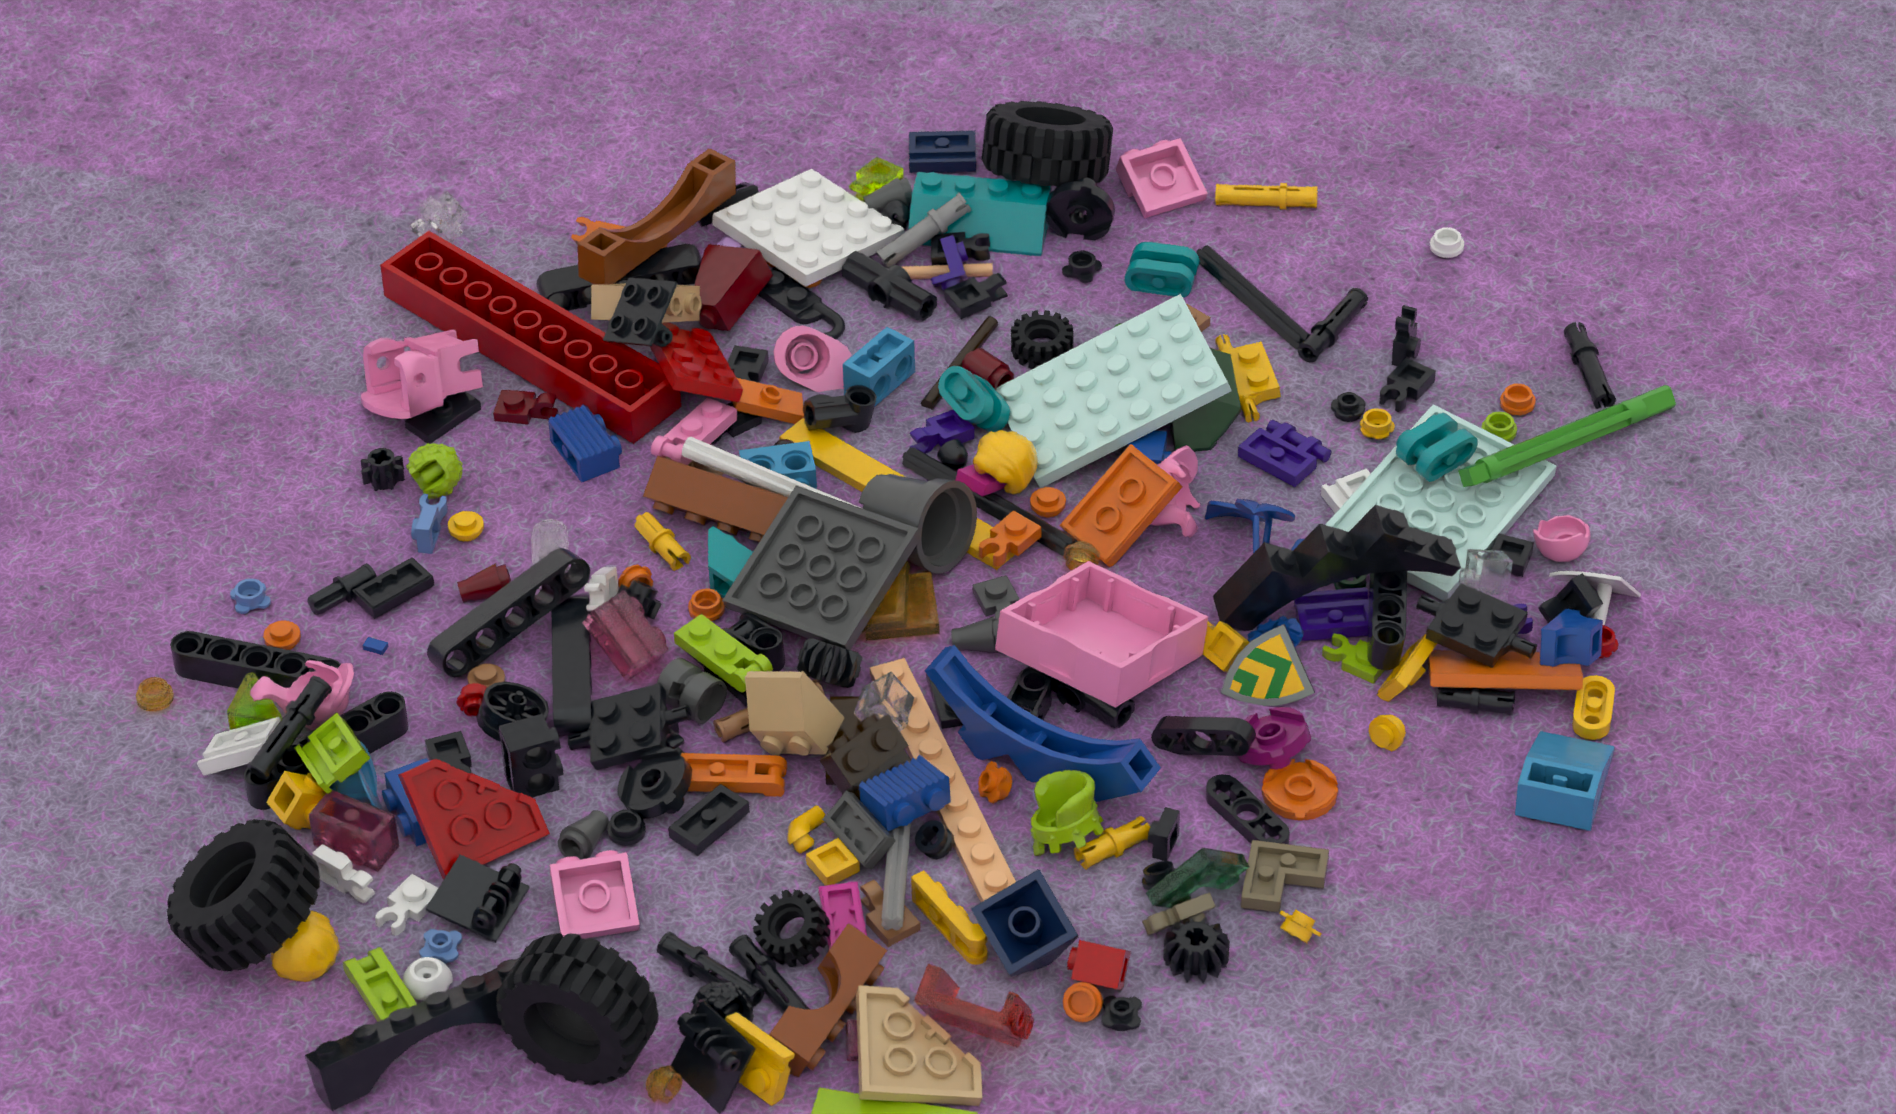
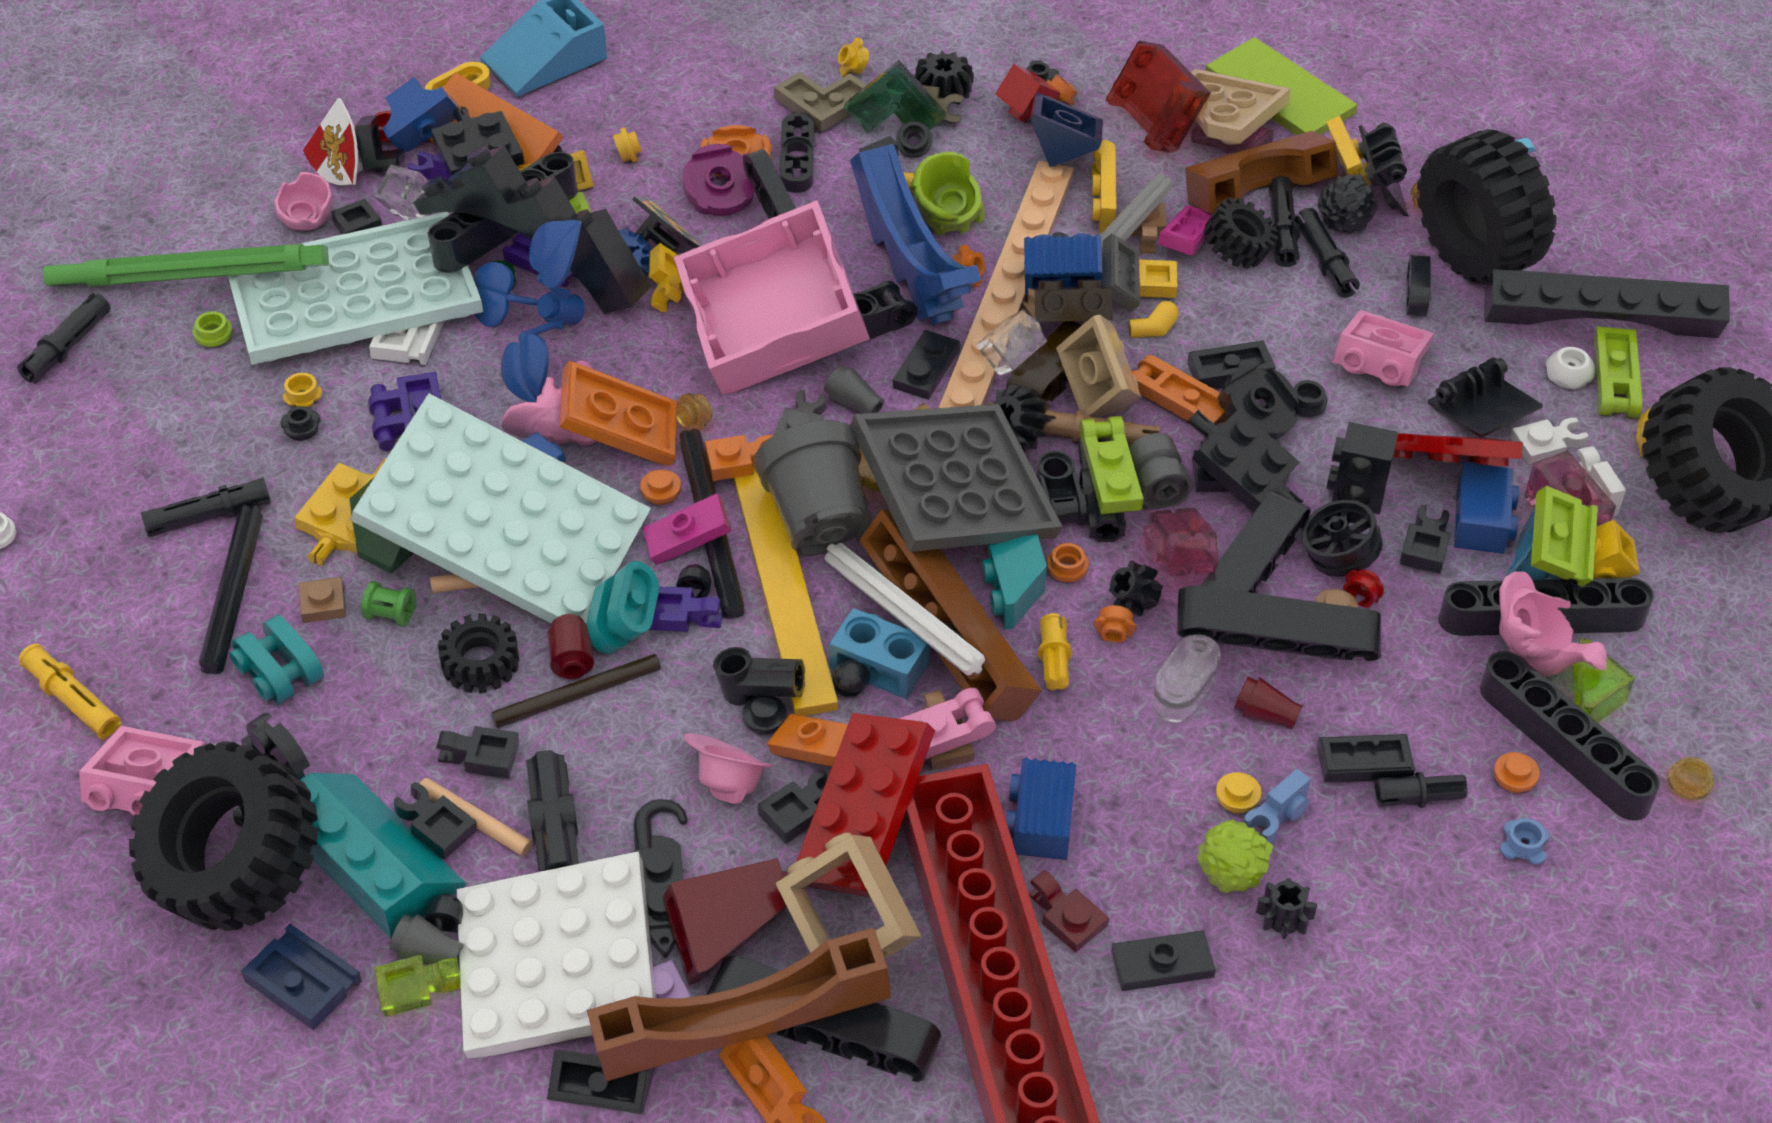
camera: 145 degrees left, 5 degrees up
(236, 746) = (1637, 643): white plate -> none
(297, 717) = (1578, 583): black pin -> none
(375, 646) = (1422, 712): blue piece -> none
(419, 377) = (1184, 978): bright pink piece -> none
(448, 951) = (1542, 385): medium blue plate -> none
(583, 835) = (1355, 406): dark grey cone -> none
(602, 587) = (1162, 611): white plate -> none
(641, 312) = (894, 832): black hinge -> none
(881, 364) = (675, 698): dark azure brick -> none
(935, 222) = (399, 829): light grey pin -> none
(955, 256) = (476, 782): dark purple bracket -> none
(1007, 458) = (667, 505): yellow hair -> none
(1082, 266) = (339, 714): black plate -> none
(1405, 381) = (224, 411): black plate -> none
(1406, 341) = (179, 435): black plate -> none
(1436, 446) = (310, 293): teal brick -> none
(1517, 399) = (162, 344): orange plate -> none

